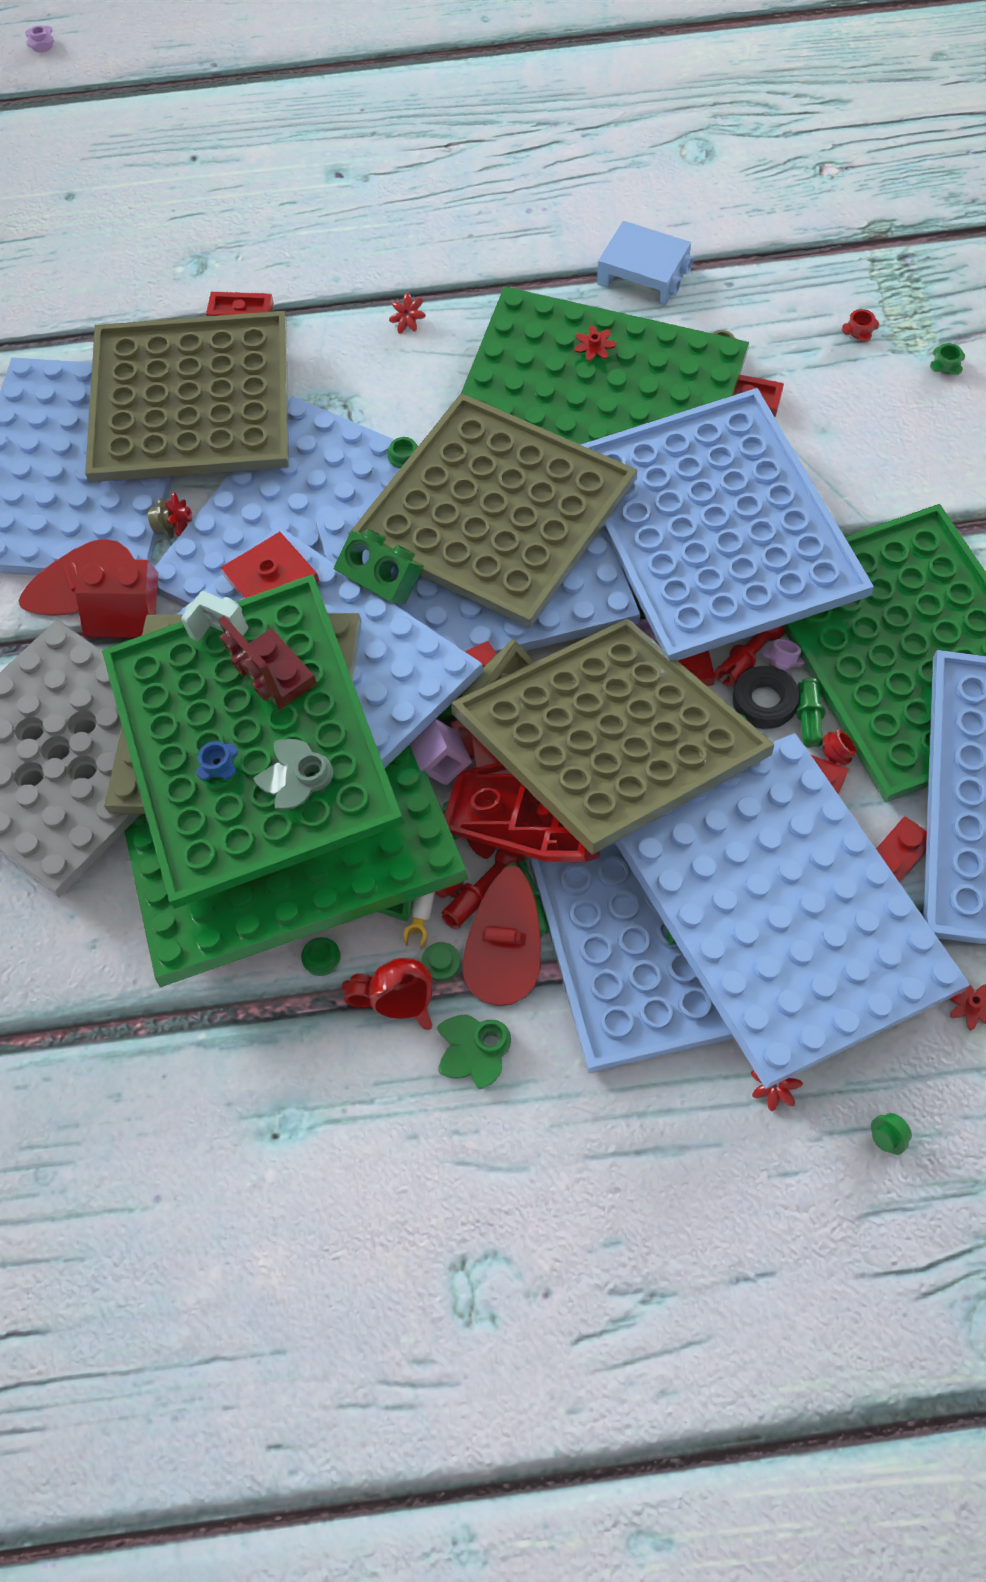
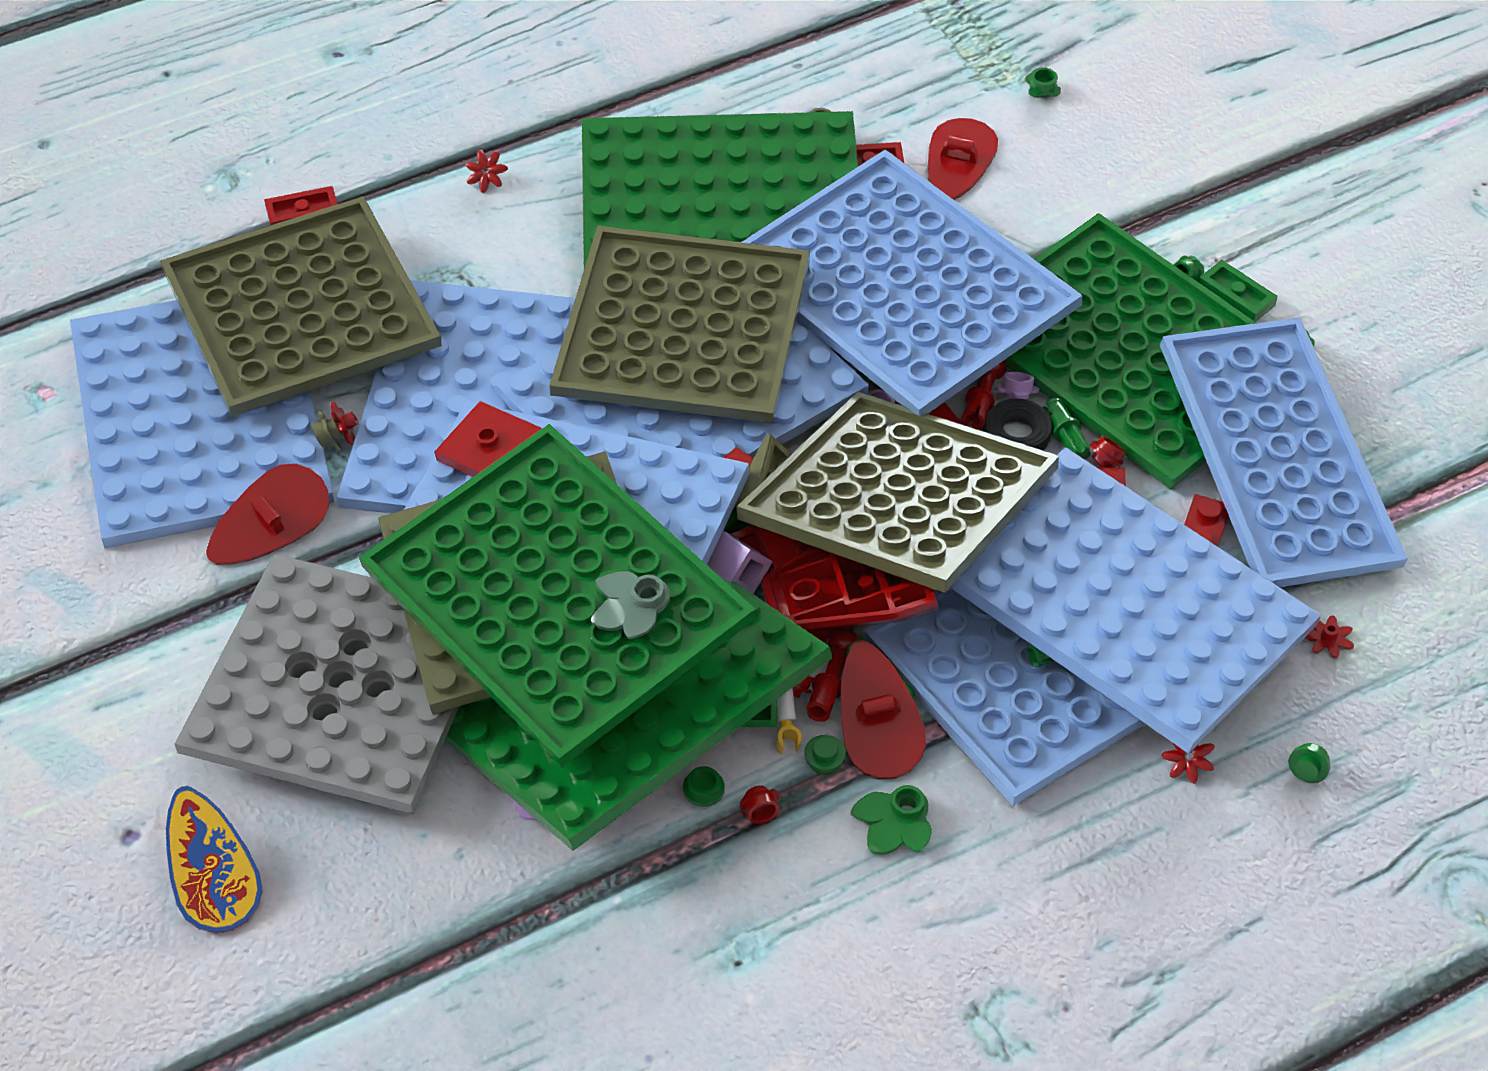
camera: 25 degrees left, 10 degrees down
(115, 596) = (323, 517): red slope -> none
(207, 610) = (473, 484): light aqua bracket -> none
(214, 752) = (542, 607): blue plate -> none
(269, 662) = (551, 513): dark red bracket -> none
(377, 570) = (597, 412): green brick -> none
(400, 451) = (556, 300): green plate -> none
(402, 990) = (805, 787): red hair -> none
(594, 343) = (702, 149): red plant -> none
(646, 259) = (708, 59): light blue panel -> none
(836, 411) = (960, 155): none -> red shield
(861, 325) = (946, 72): red plate -> none

